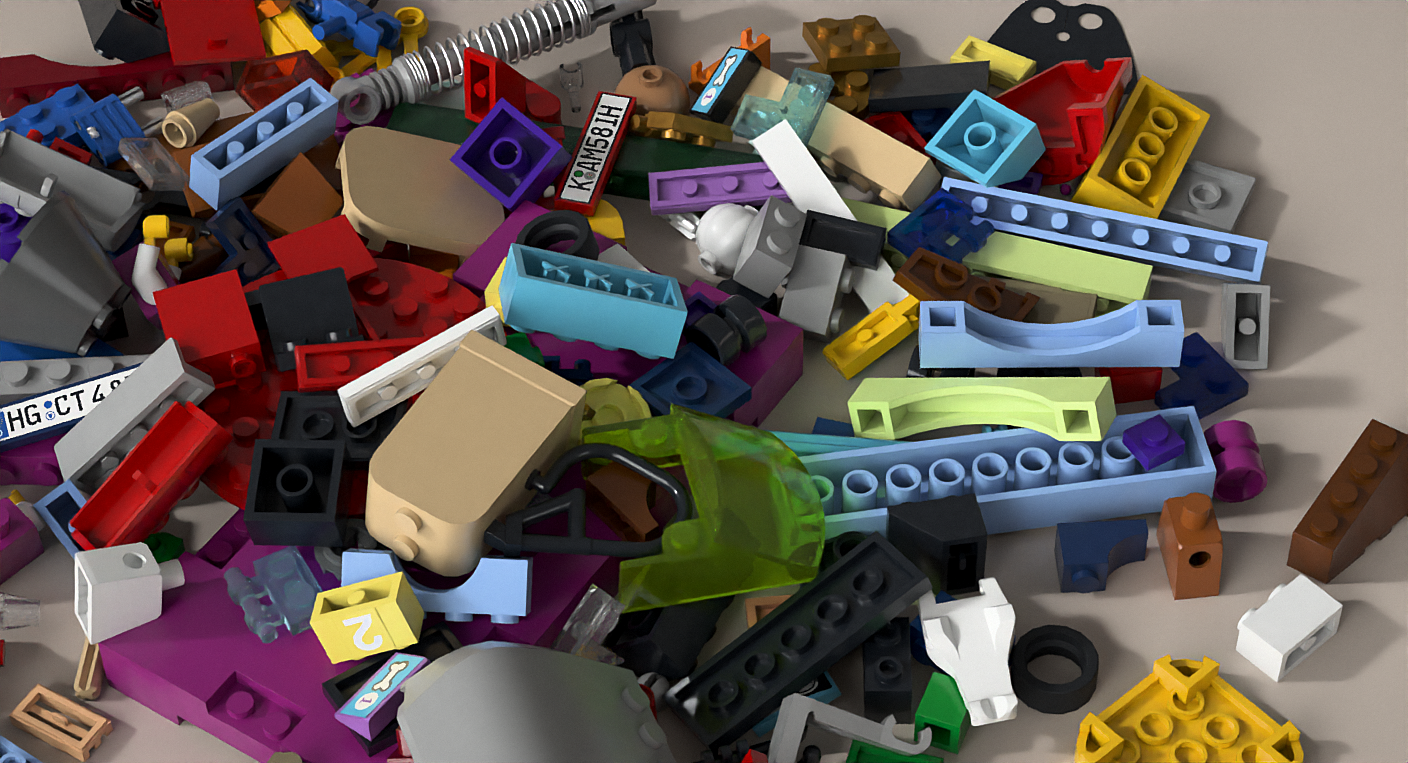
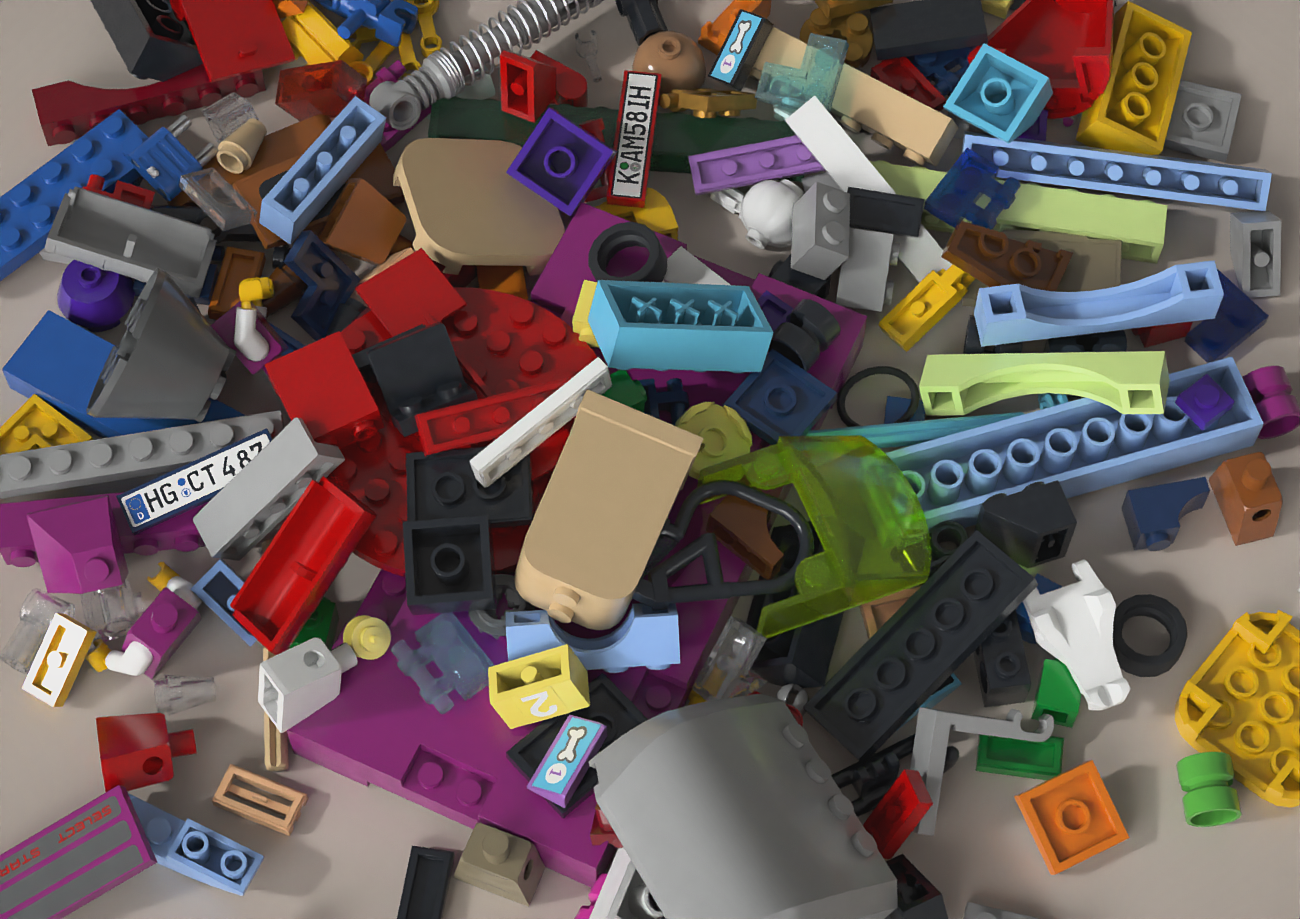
camera: 10 degrees left, 15 degrees up
(201, 559) = (367, 637): none -> light yellow wheel
(808, 394) = (872, 371): none -> black tyre

